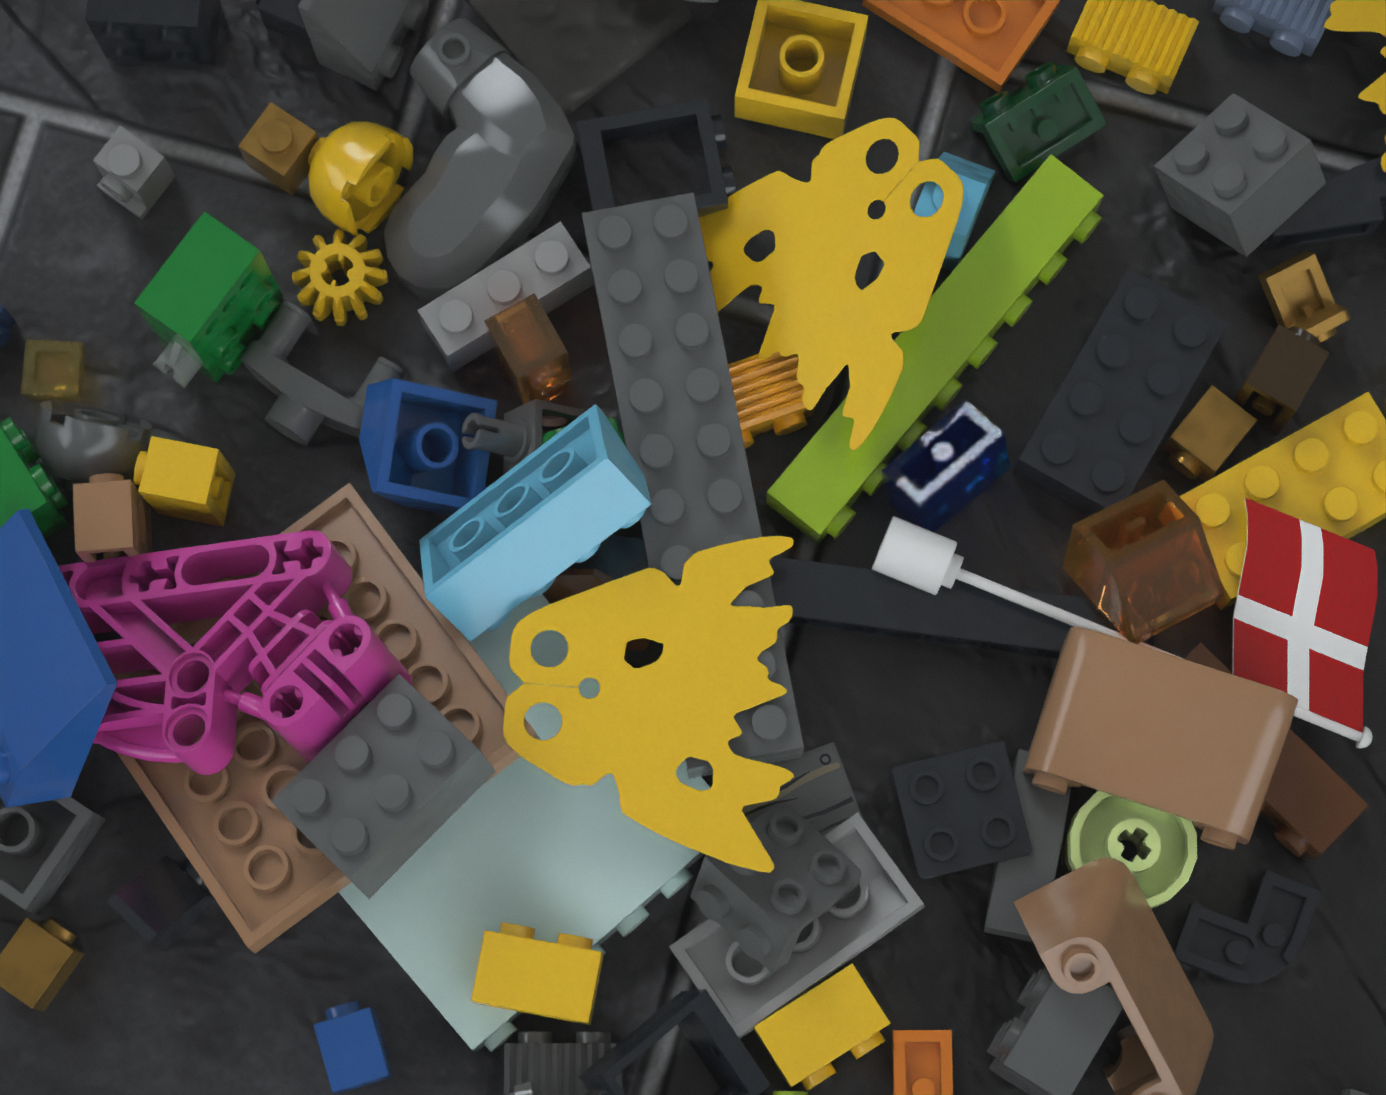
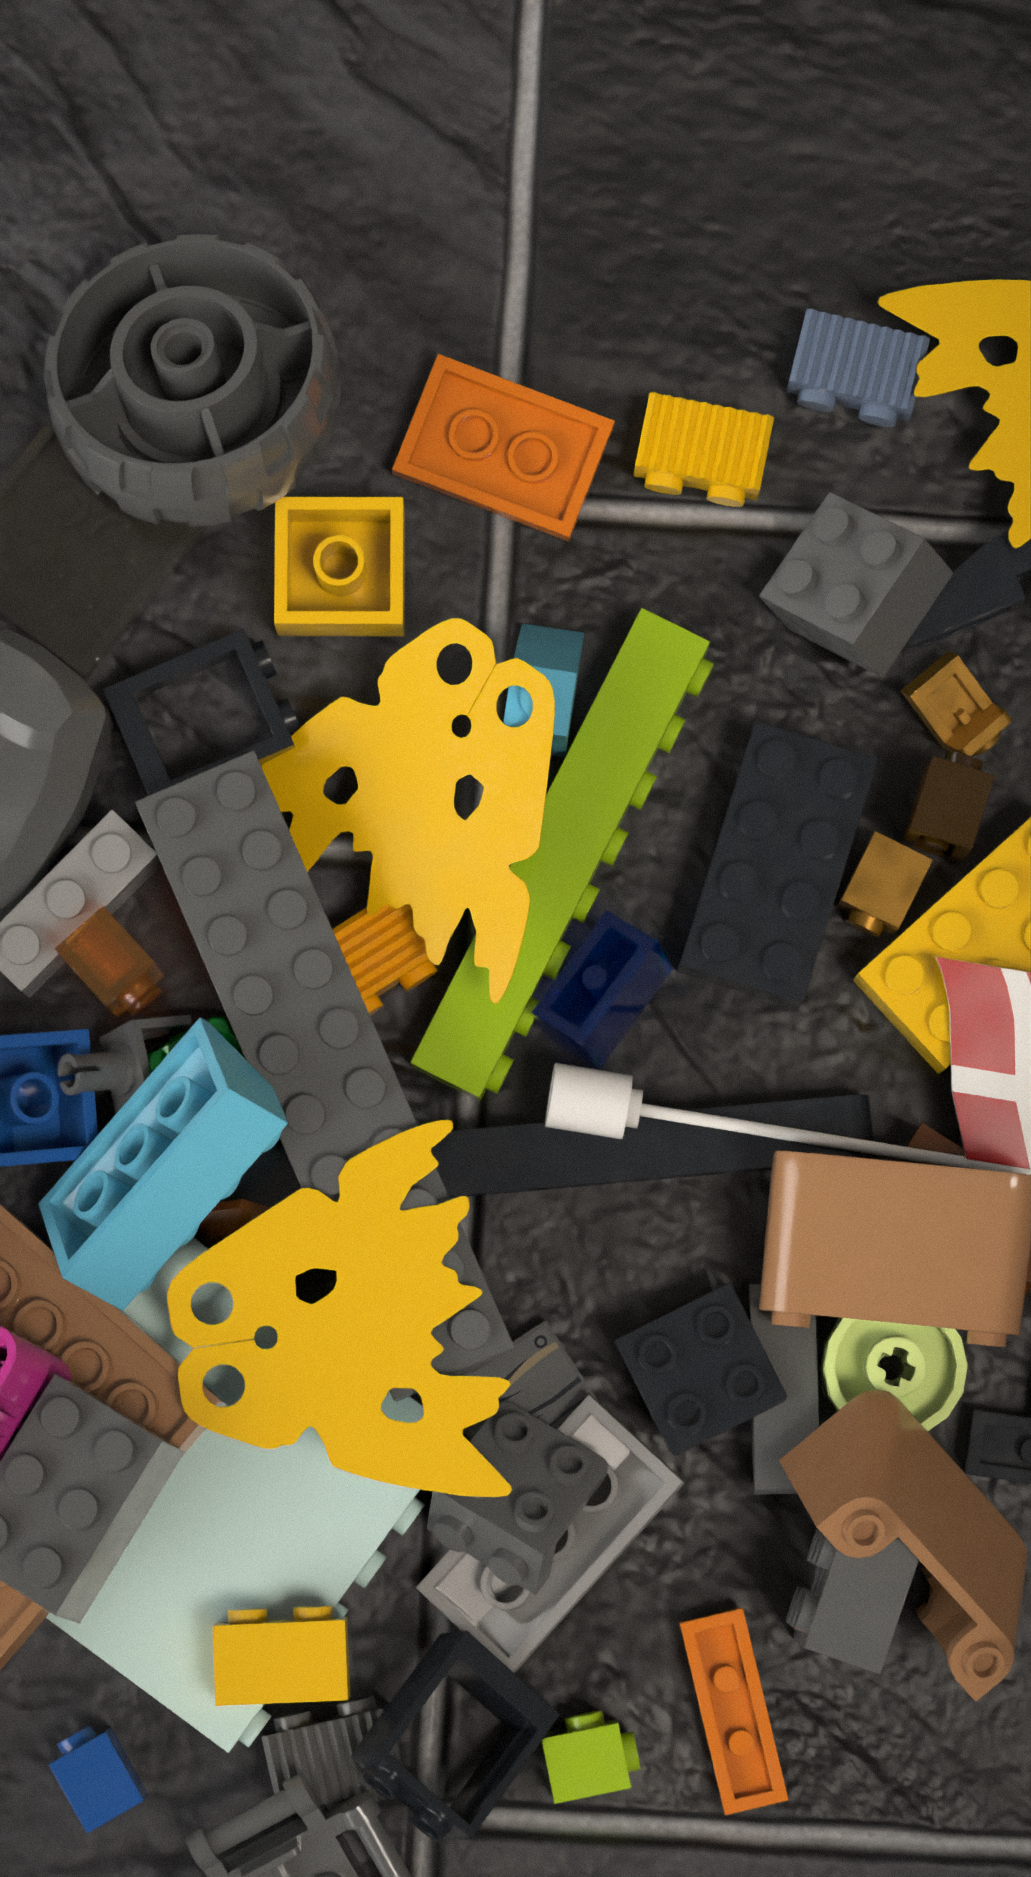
camera: 15 degrees left, 5 degrees up
(822, 1027) = (602, 1638): yellow brick -> none
(1038, 119) = (618, 564): dark green bracket -> none
(1144, 562) = (842, 1051): clear orange slope -> none

